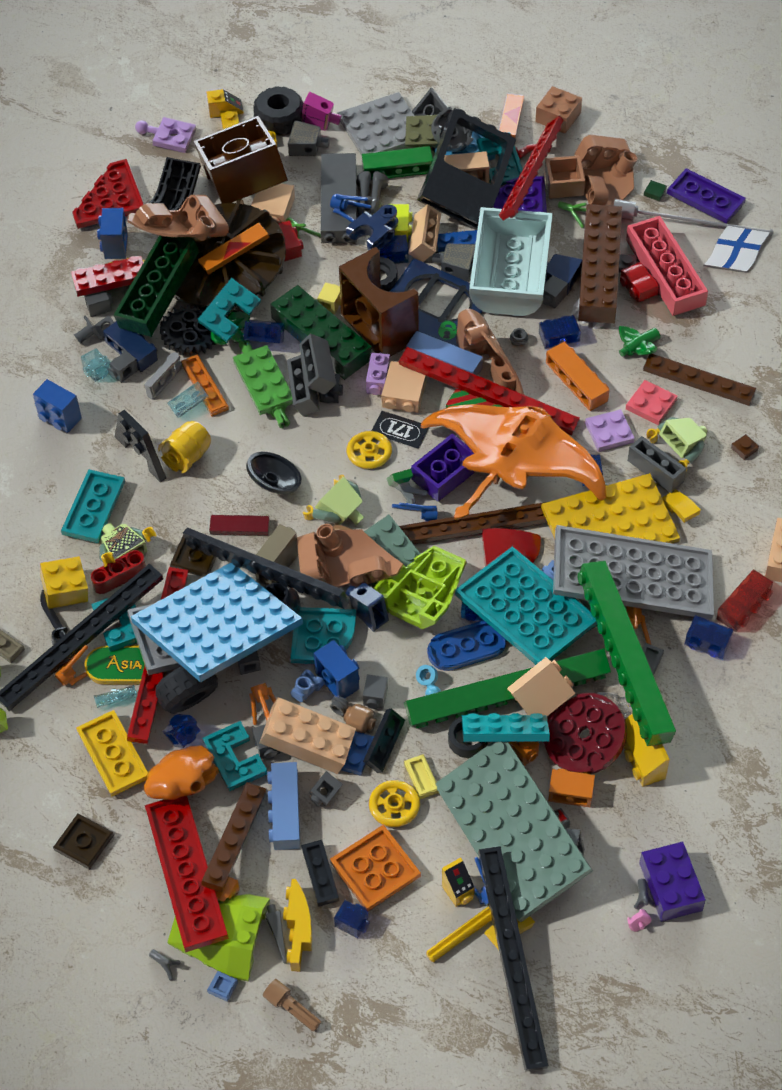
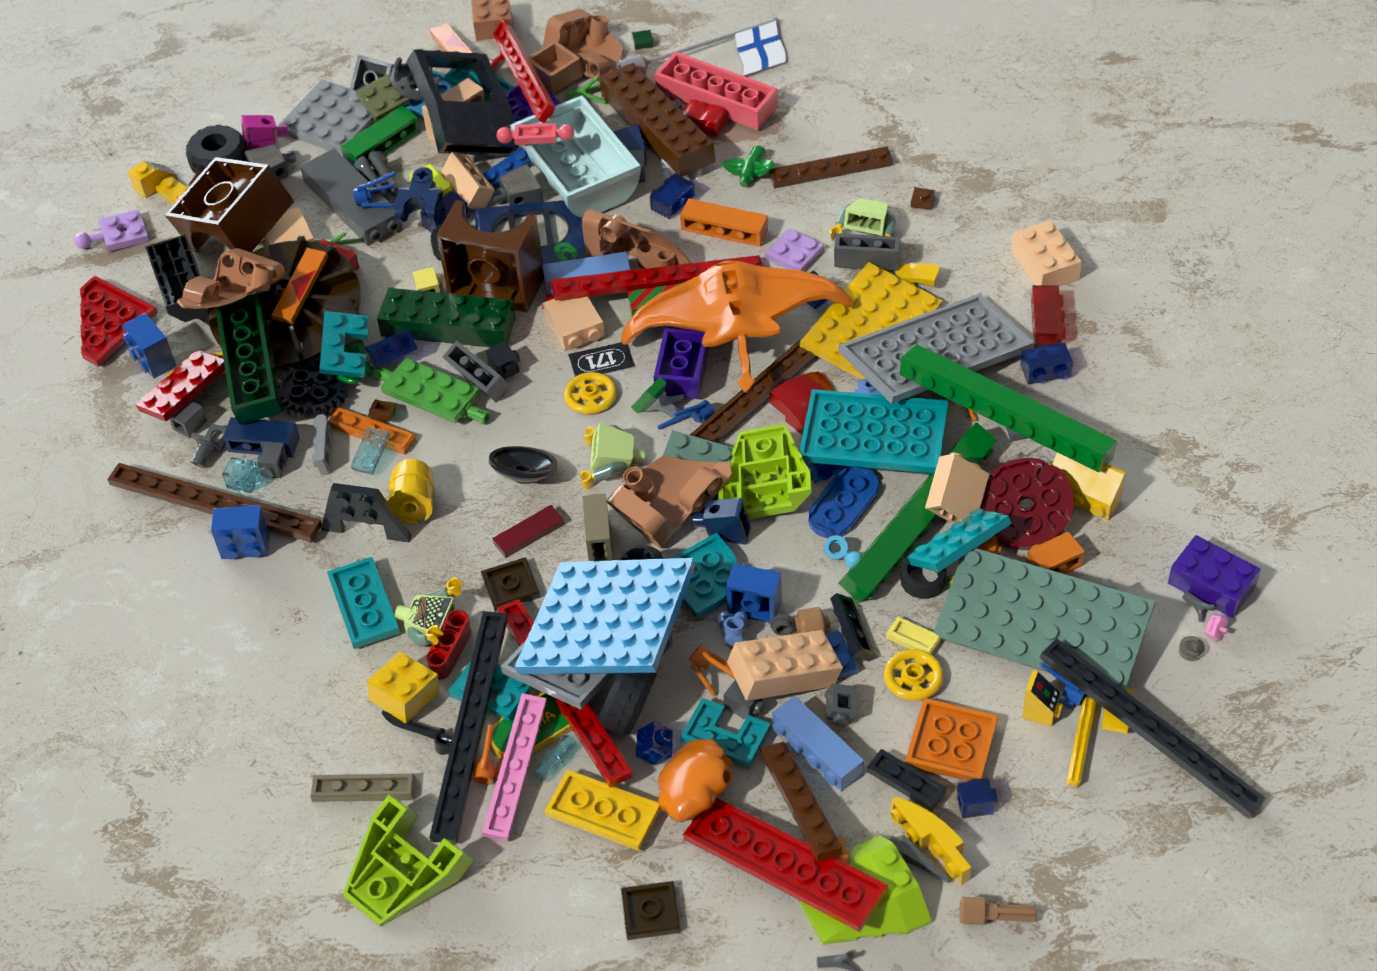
camera: 35 degrees left, 5 degrees down
(64, 373) = (206, 499): none -> reddish brown plate
(82, 685) = (514, 767): none -> bright pink plate
(221, 374) = (382, 410): none -> reddish brown plate
(222, 986) = (913, 943): medium blue tile -> none
(266, 568) = (606, 541): black plate -> none
(317, 364) = (480, 340): dark grey brick -> none
(375, 691) = (803, 590): dark grey brick -> none
(377, 373) = (537, 323): lavender brick -> none
(488, 225) = (535, 134): none -> coral plate
(519, 337) = (639, 218): dark grey plate -> none
(607, 922) = (1191, 648): none -> clear smoke tile
(651, 402) = (808, 208): coral plate -> none
(706, 195) = (693, 20): dark purple plate -> none

